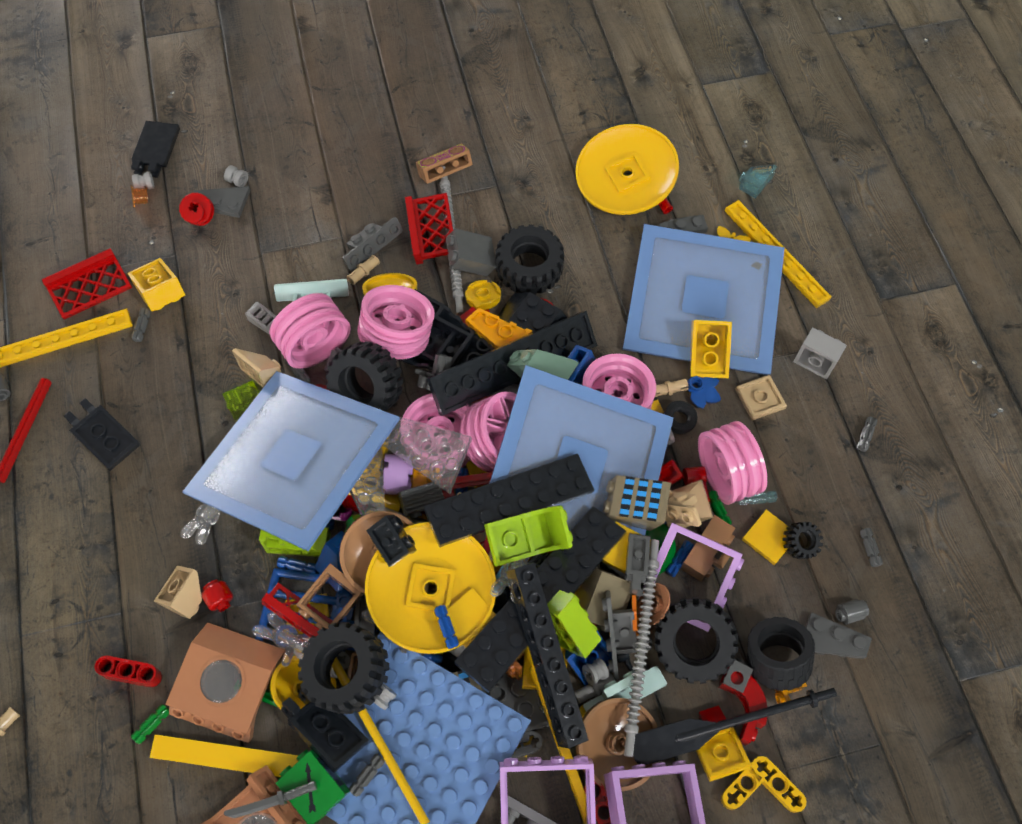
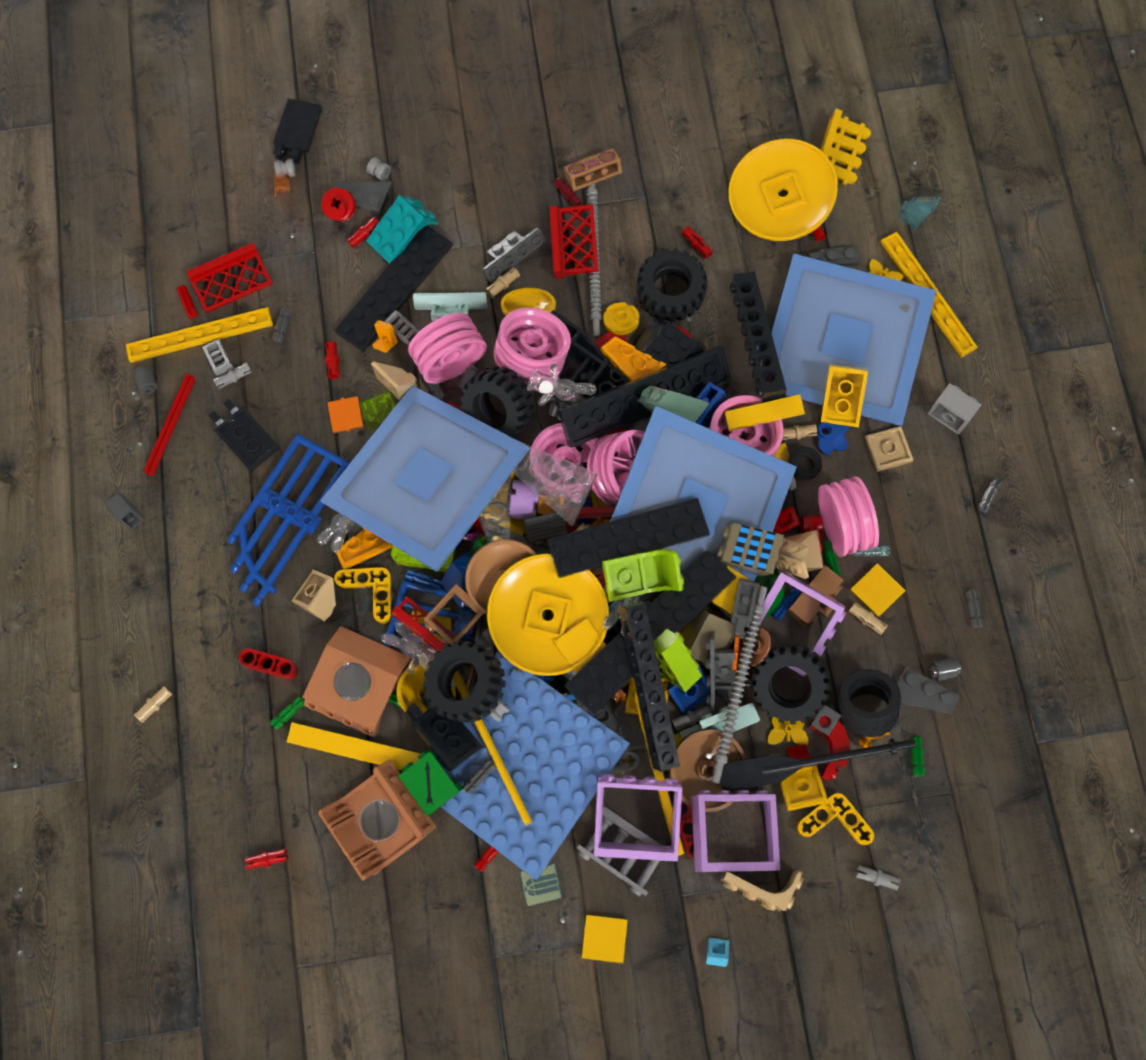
camera: 10 degrees right, 10 degrees up
(43, 309) = (187, 302): none -> red axle
(76, 363) = (221, 368): none -> light grey slope
(89, 376) = (232, 375): none -> light grey pin
(146, 505) = (286, 509): none -> blue piece
(156, 284) = (297, 283): yellow slope -> none
(193, 354) = (332, 360): none -> red pin
(208, 406) = (345, 414): none -> orange piece
(217, 595) = (350, 601): red head -> none
(223, 233) = (363, 232): none -> red pin
(229, 538) = (361, 548): none -> light orange wing
(247, 577) = (385, 585): none -> yellow beam
(248, 327) = (386, 335): none -> light orange bracket
(253, 283) = (393, 287): none -> black plate
(257, 225) = (399, 227): none -> teal bracket
(281, 798) = (402, 790): dark grey sword -> none
(391, 539) = (514, 568): black bracket -> none
(421, 185) = (567, 192): none -> dark red axle
(430, 358) = (562, 389): none -> clear animal
(446, 626) = (559, 652): blue axle -> none
(470, 252) = (612, 273): dark grey brick -> none
(550, 221) = (697, 242): none -> red pin
(595, 671) = (694, 703): light grey wheel -> none
(620, 301) = (758, 337): none -> black brick
(635, 368) = (764, 412): none -> yellow tile
(676, 126) = (840, 140): none -> yellow fence
(697, 691) = (786, 729): none -> yellow piece
(765, 566) = (868, 618): none -> tan pin
(812, 536) = (917, 601): black tyre -> none
(839, 710) = (917, 757): none -> green axle

